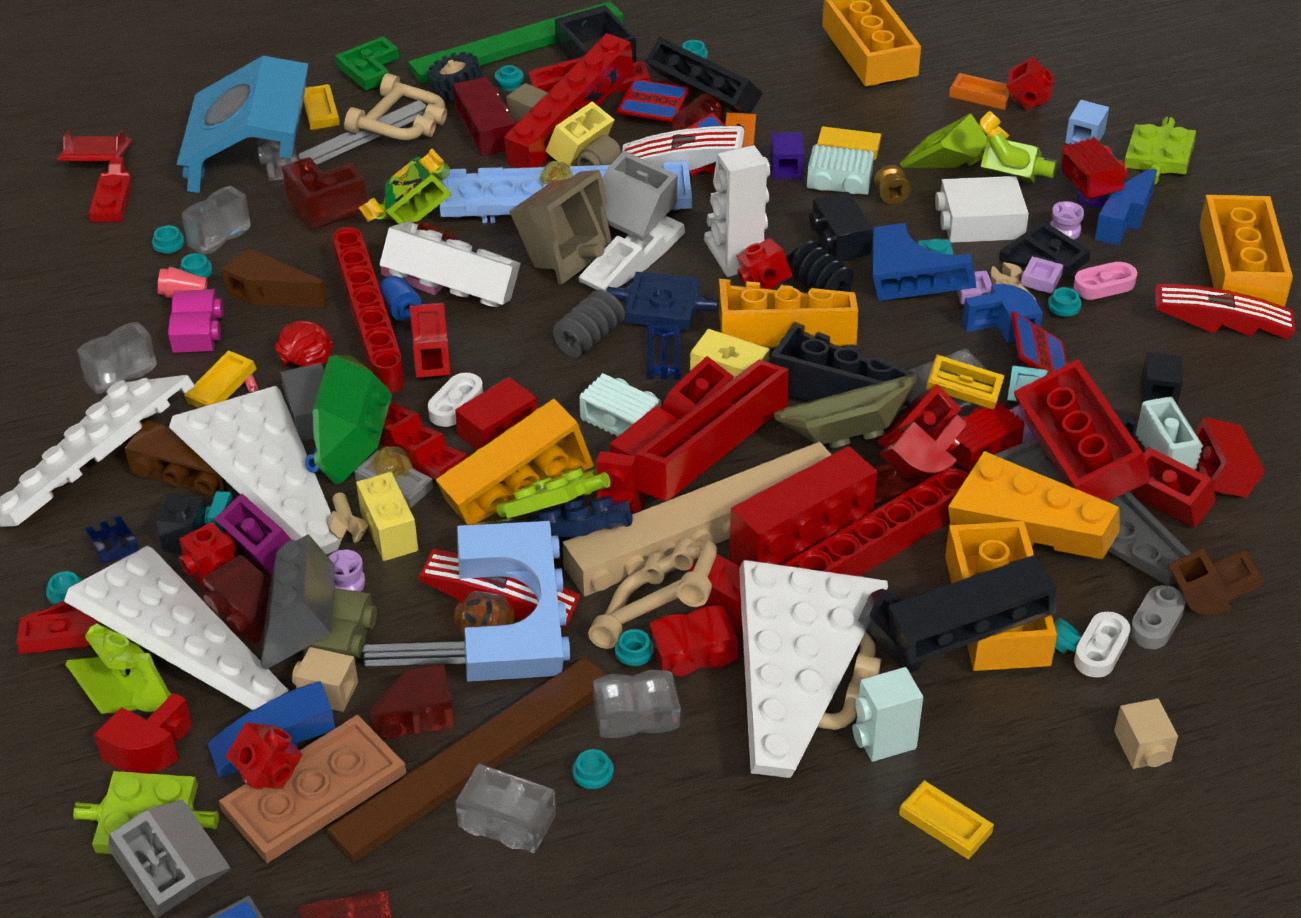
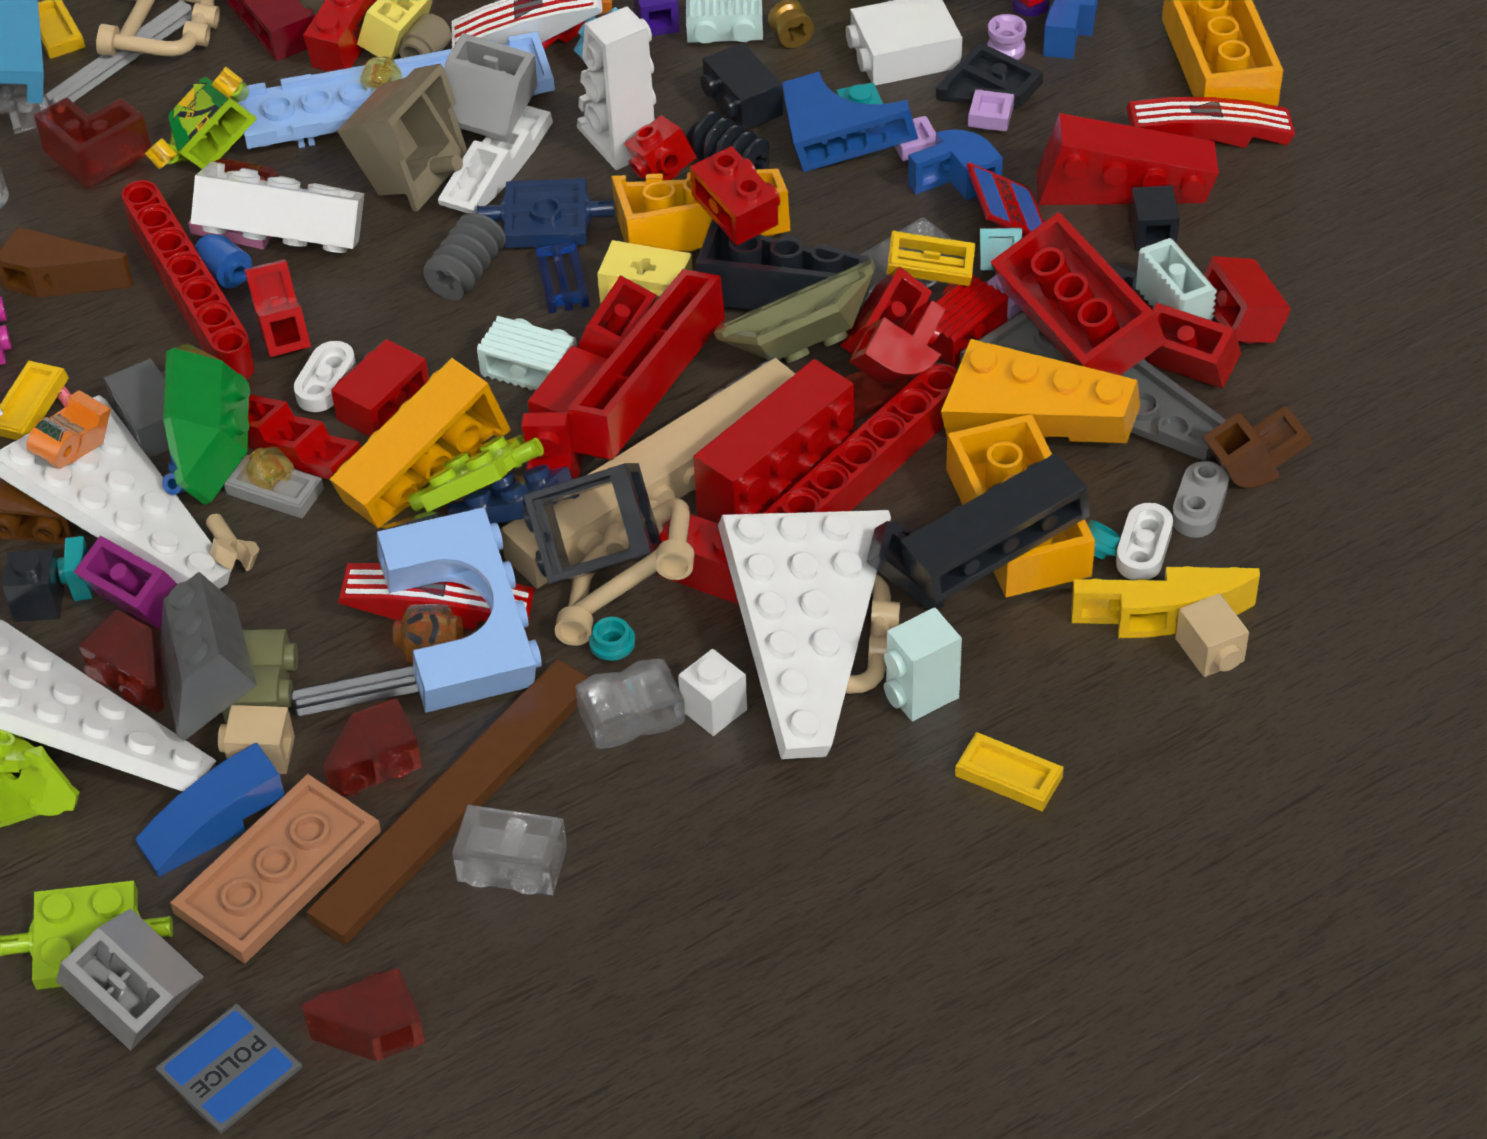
camera: 10 degrees left, 5 degrees up
(143, 744) = (59, 855): red brick -> none
(206, 551) = (72, 614): red brick -> none
(240, 408) = (70, 431): none -> orange leg
(264, 755) = (214, 841): red brick -> none
(303, 344) = (121, 338): red hair -> none
(348, 570) = (251, 605): lavender wheel -> none
(387, 516) = (281, 532): light yellow brick -> none
(593, 769) = (597, 787): teal plate -> none
(670, 540) = (634, 509): none -> black window
(694, 640) = (680, 618): red brick -> none
(707, 706) = (713, 692): none -> white brick
(813, 307) = (735, 195): none -> red brick
(1010, 275) = (955, 118): tan bar -> none
(1064, 302) = (1024, 140): teal plate -> none
(1098, 700) = (1153, 607): none -> yellow slope
(1105, 280) = (1076, 98): bright pink plate -> none
(1125, 327) = (1104, 160): none -> red wedge

